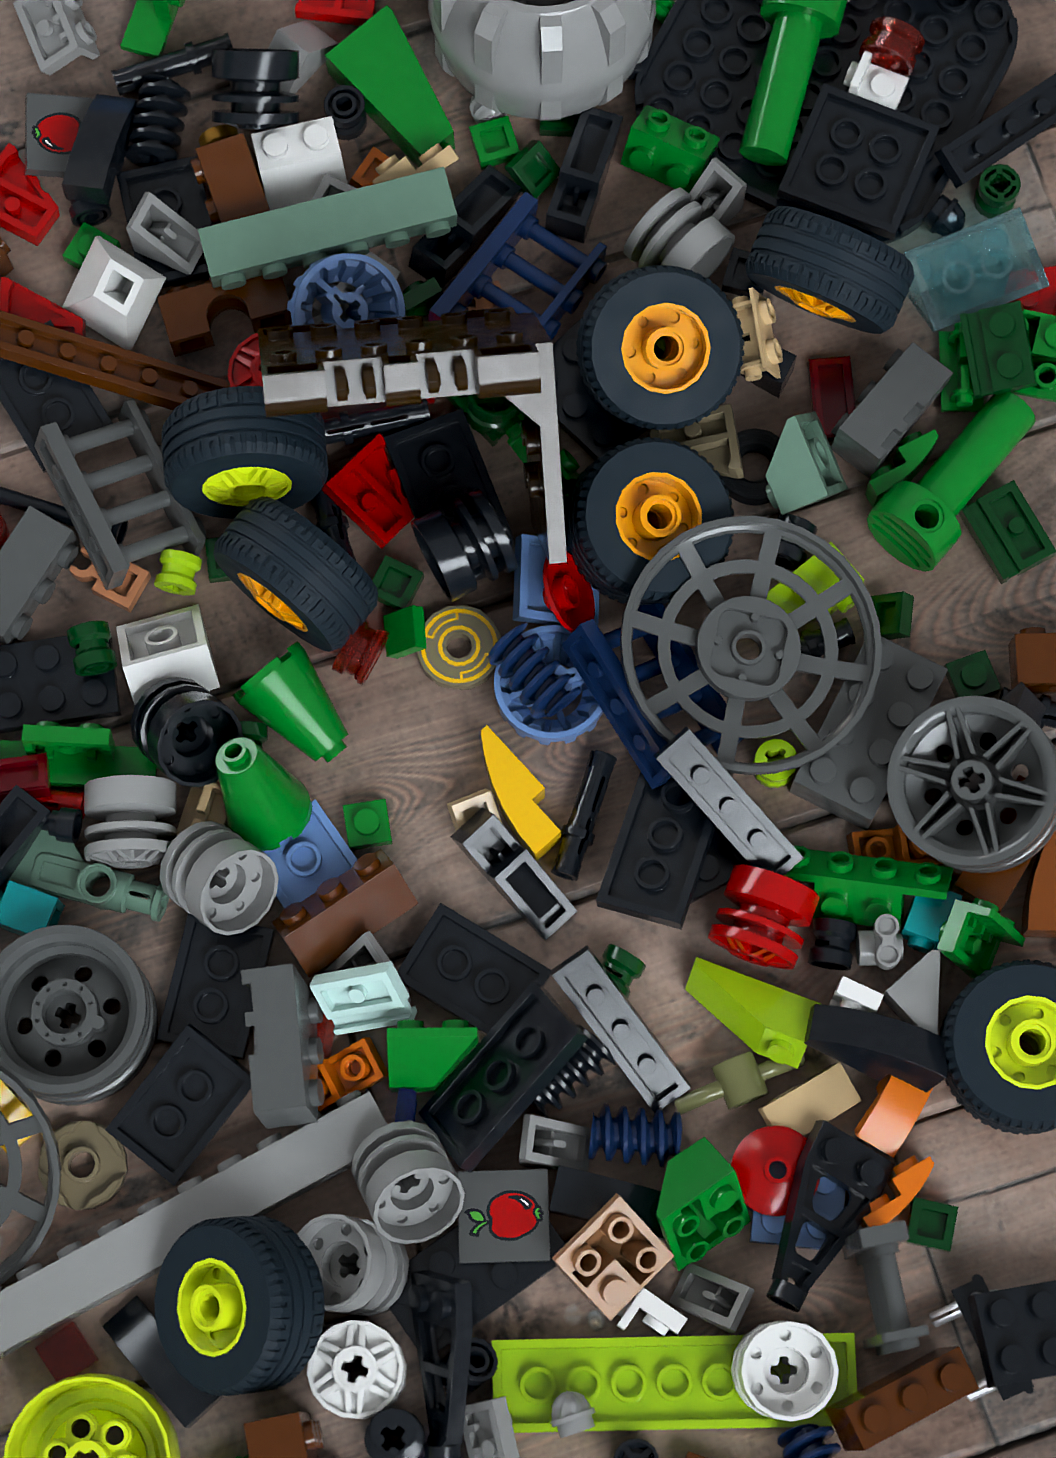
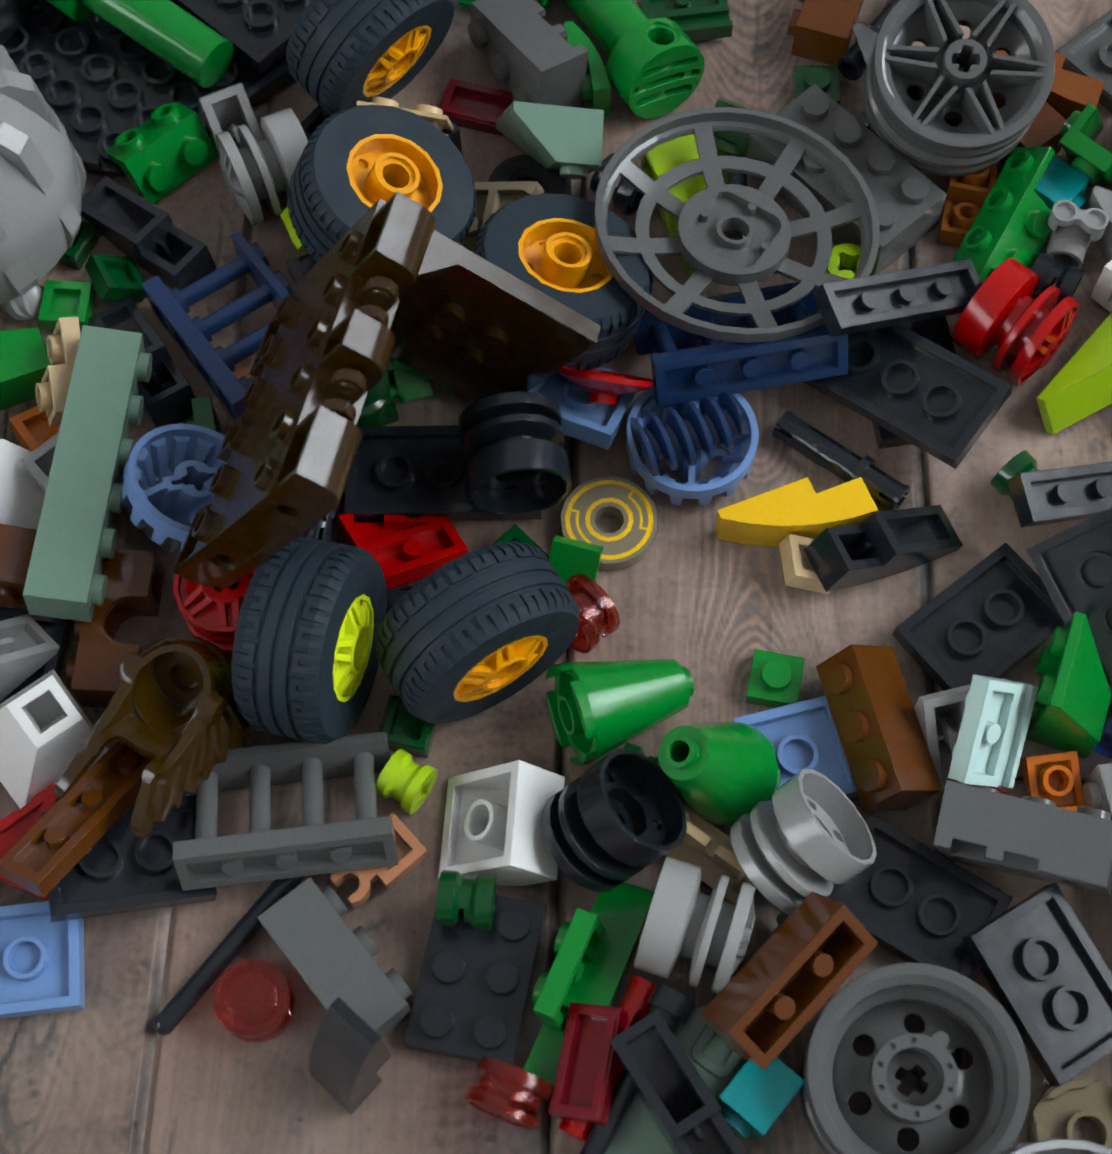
camera: 70 degrees left, 10 degrees down
(99, 895) = (789, 979): none -> reddish brown brick
(144, 375) = (169, 709): none -> dark brown piece

